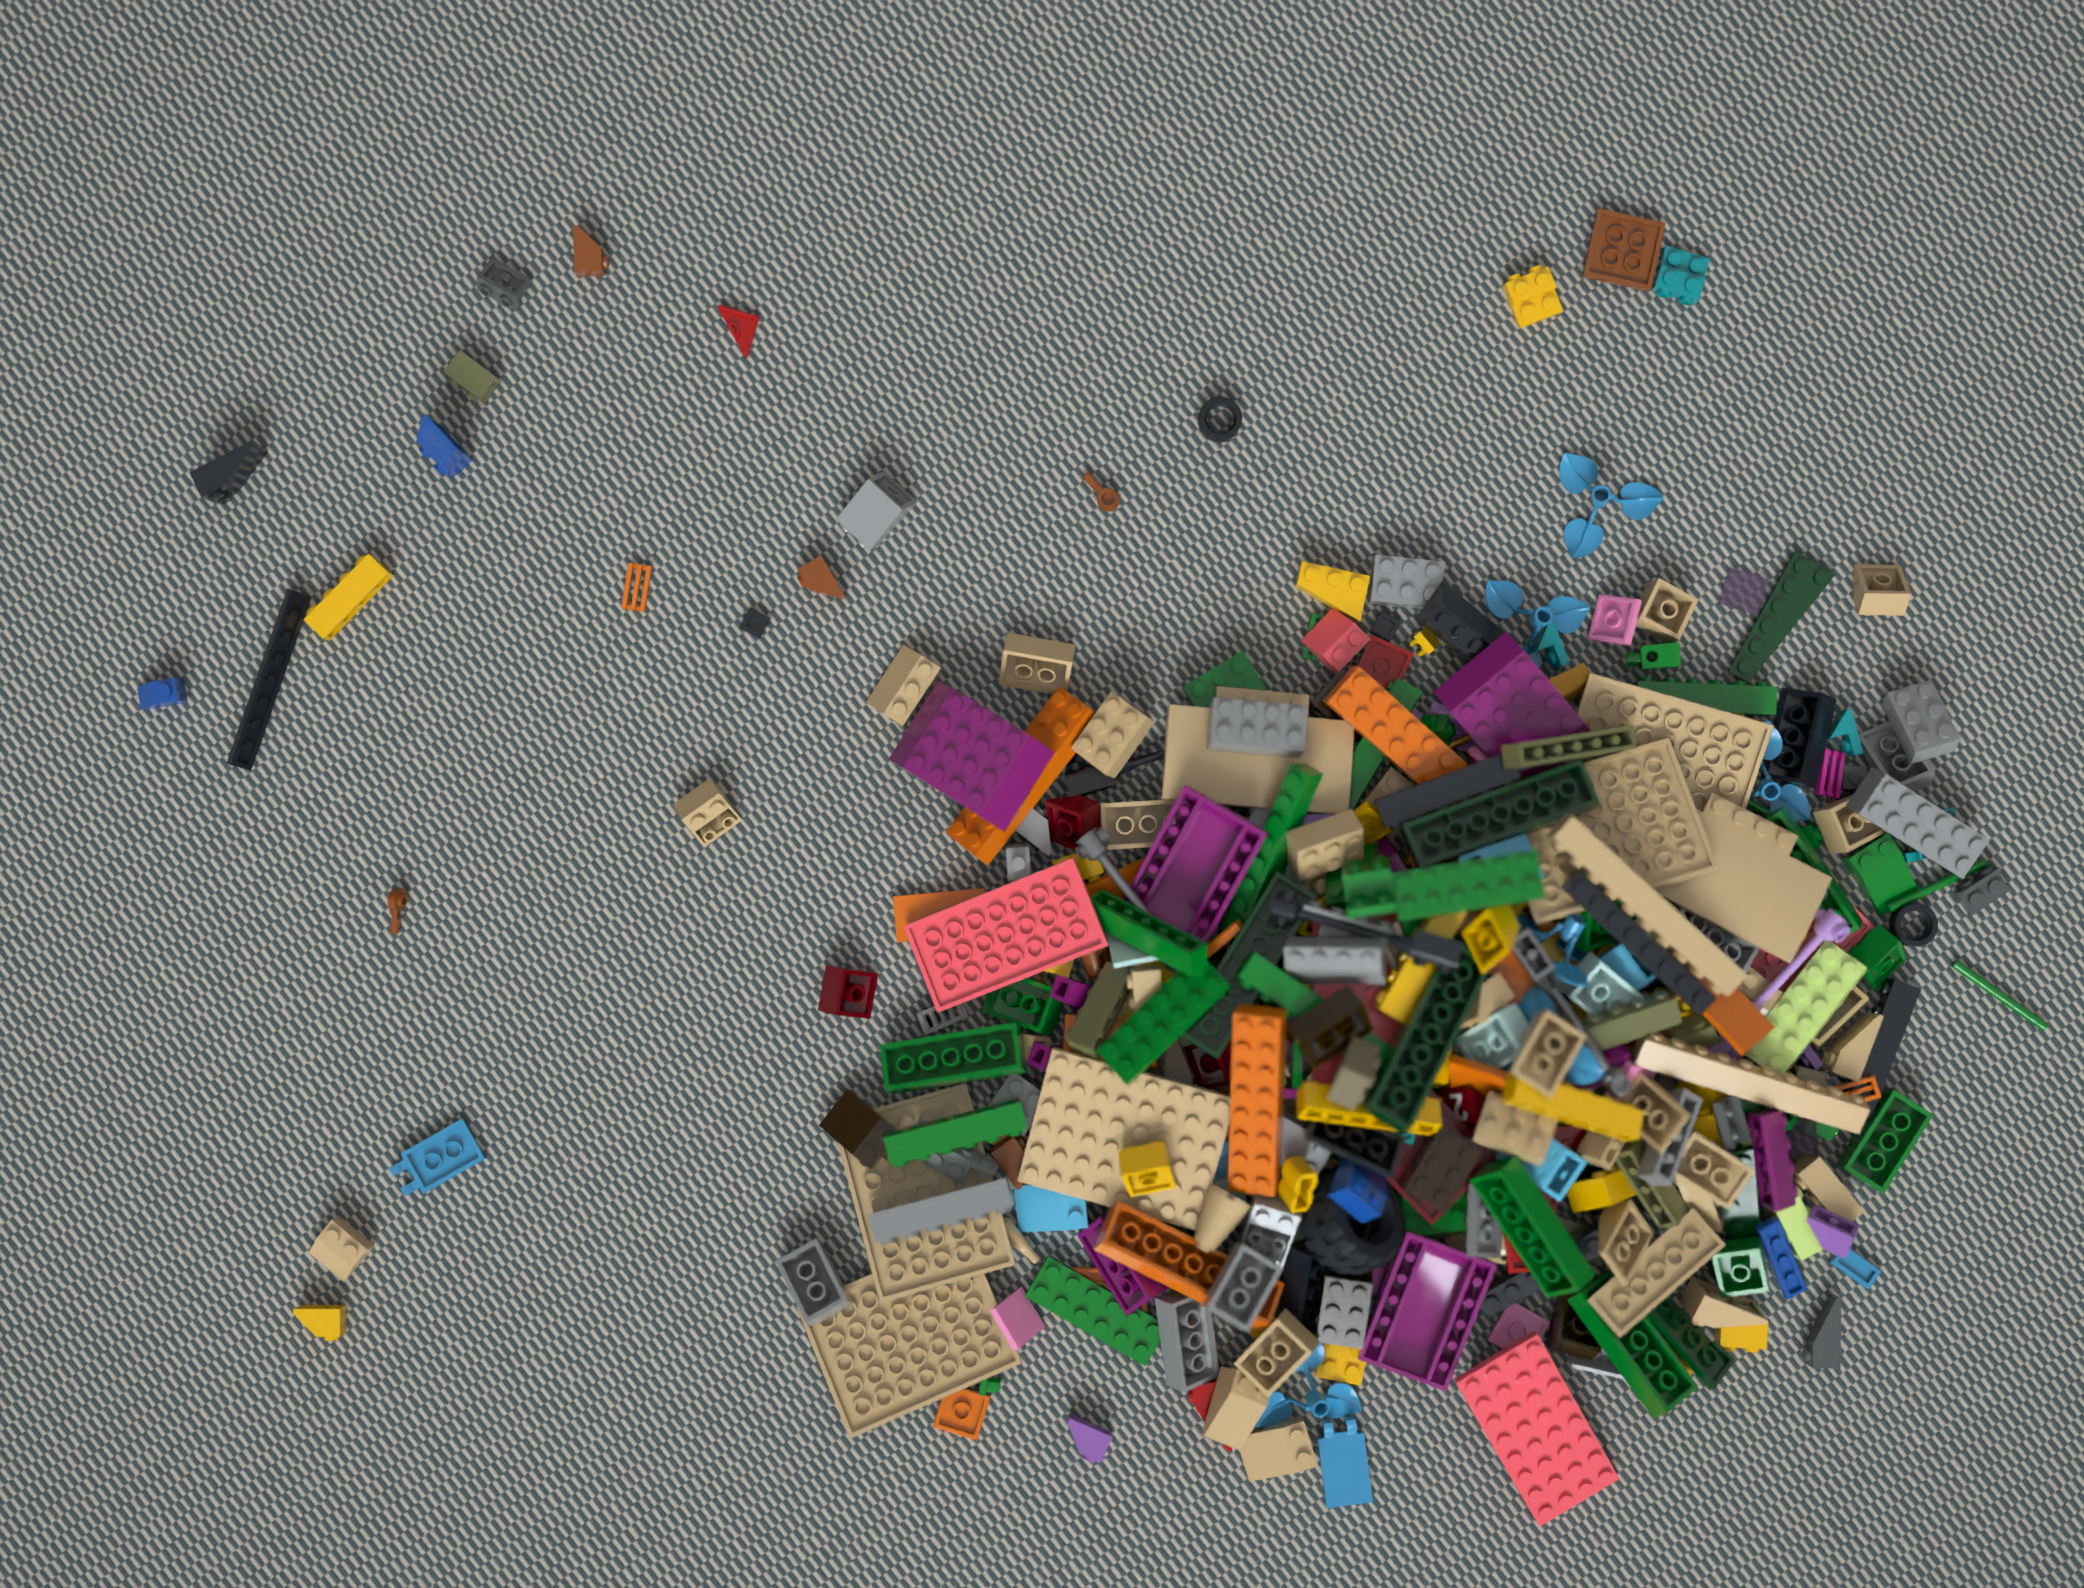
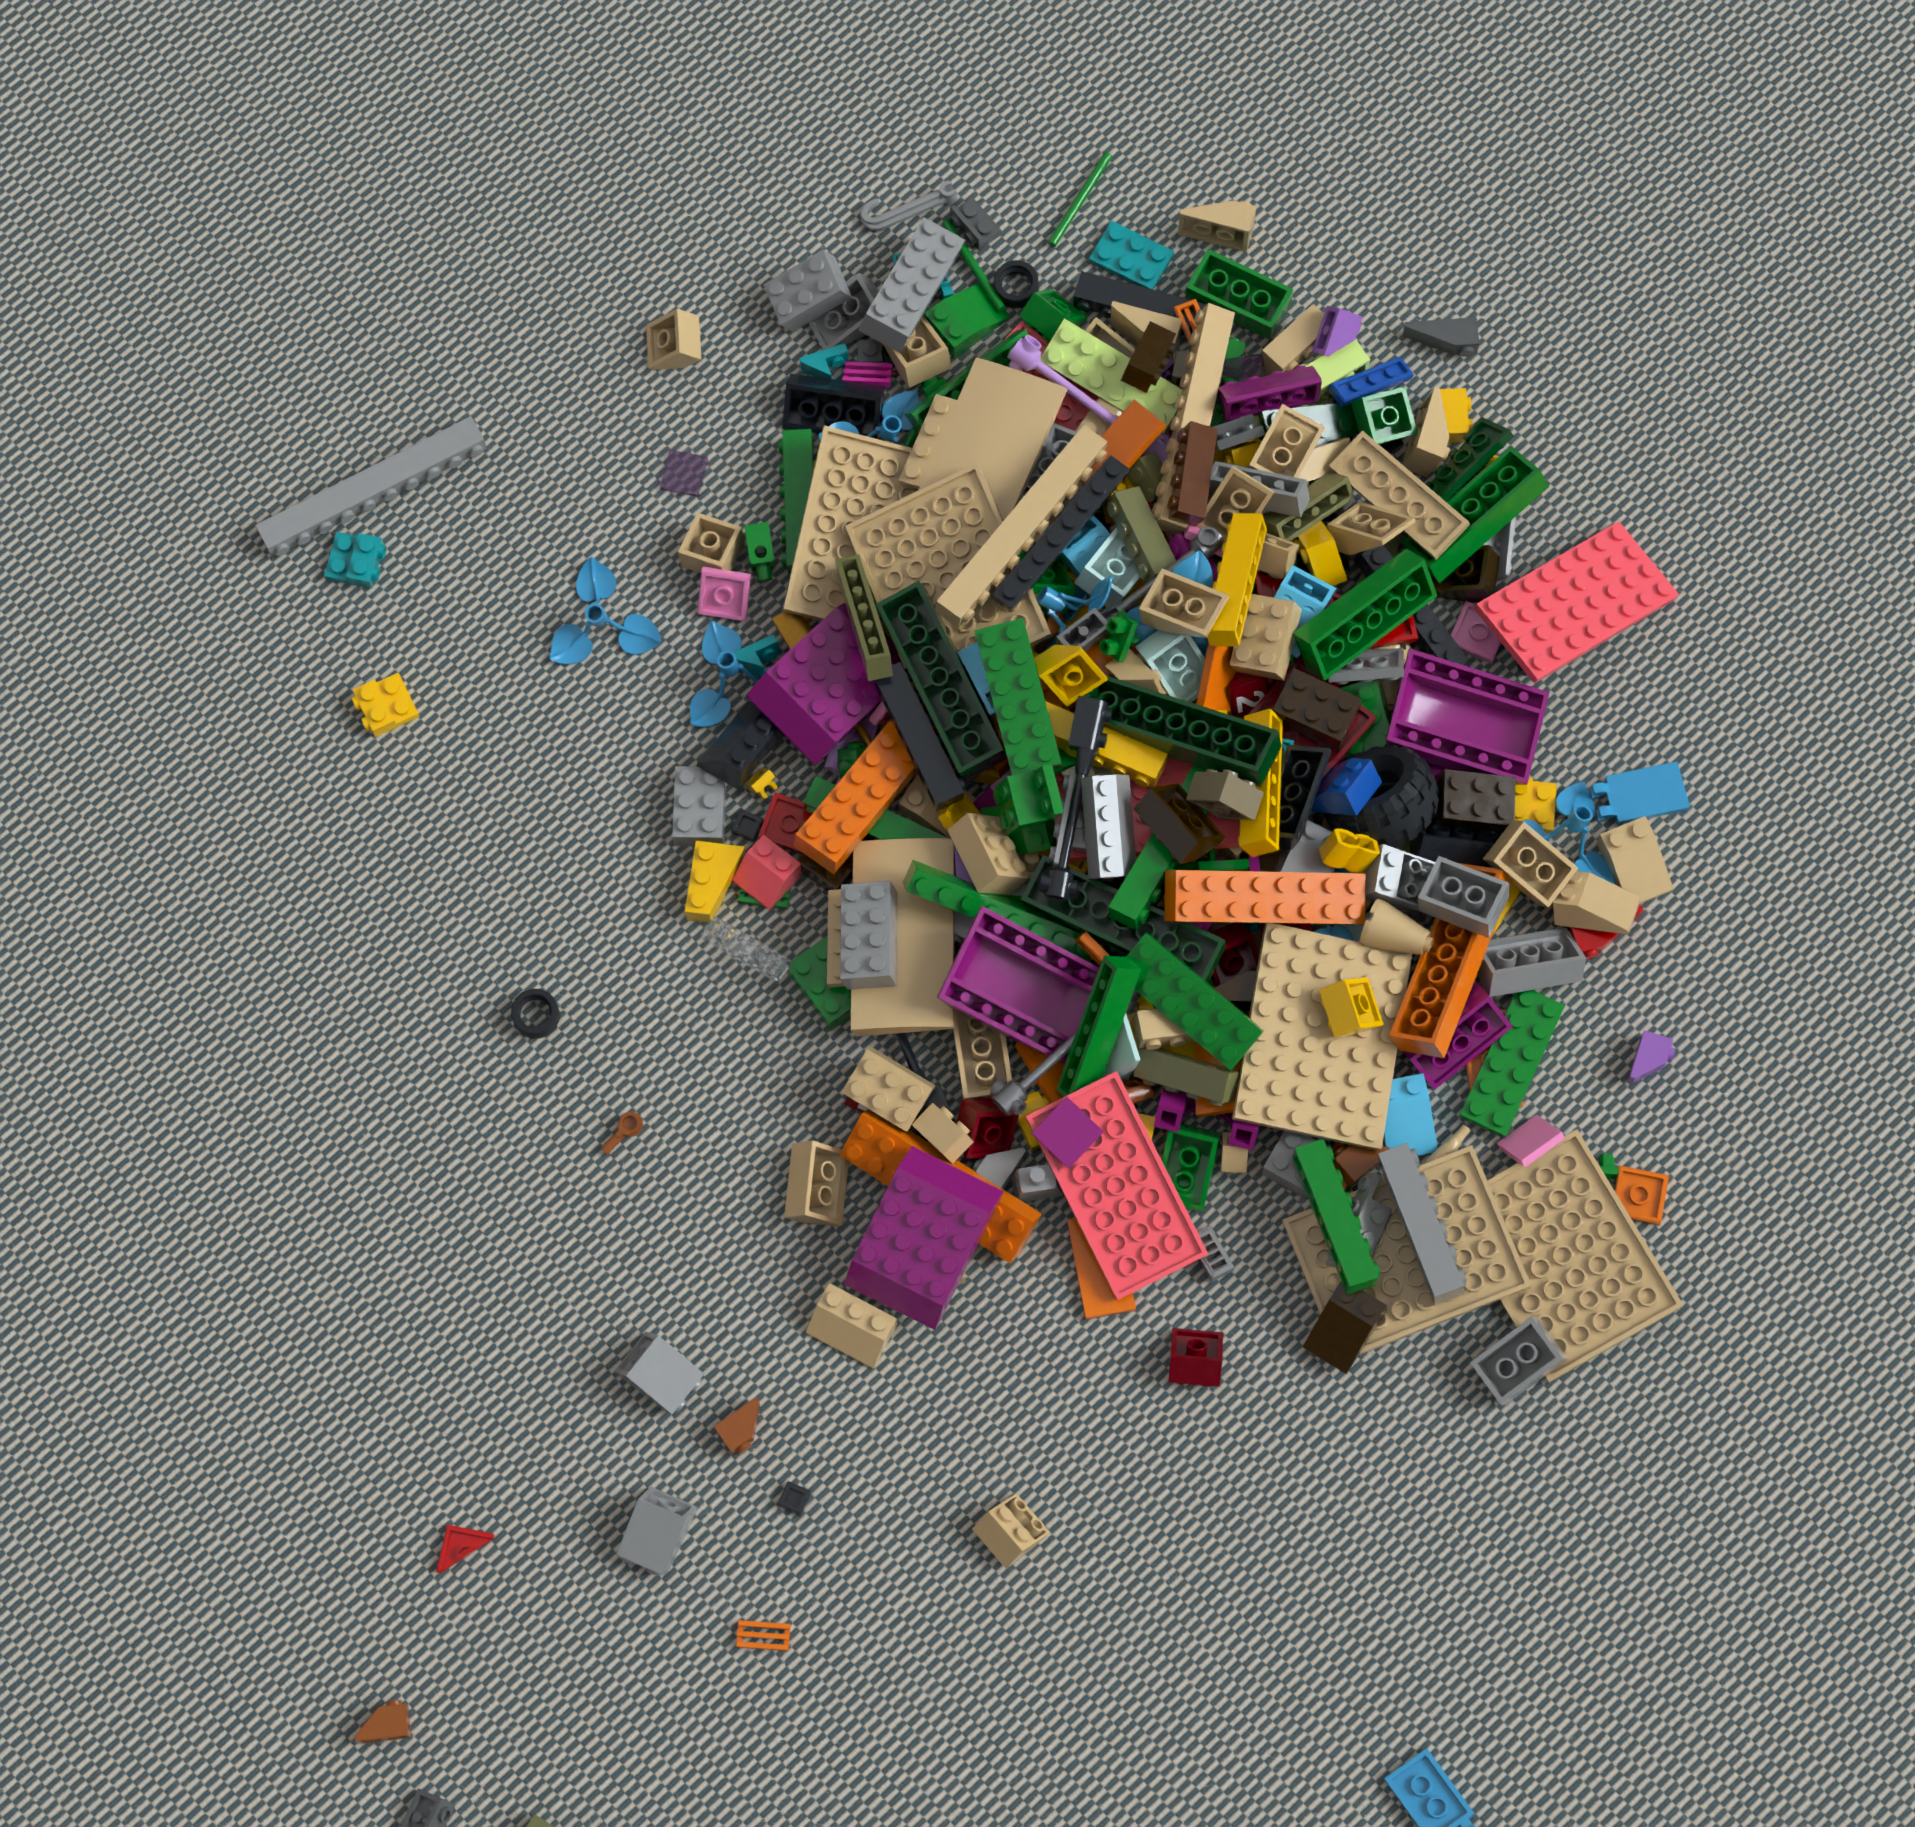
camera: 95 degrees left, 15 degrees down
(735, 499) = (656, 1531): none -> light grey slope
(953, 1058) = (1256, 1230): green brick -> none
(1053, 894) = (1067, 1132): none -> magenta tile
(1067, 781) = (942, 1132): none -> tan brick
(1262, 615) = (746, 949): none -> clear hinge
(1526, 991) = (1121, 635): none -> green hips
(1623, 250) = (330, 617): dark orange plate -> none
(1689, 1075) = (1192, 473): none -> reddish brown brick
(1752, 294) = (371, 487): none -> light grey brick
(1788, 601) = (695, 430): dark green wing -> none
(1817, 1046) = (1149, 357): none -> dark brown brick
(1856, 1268) = (1373, 312): dark azure tile -> none
(1934, 1039) = (1131, 256): none -> teal plate
(1960, 1129) = (1221, 223): none -> tan slope
(2014, 863) = (944, 194): none -> light grey piece

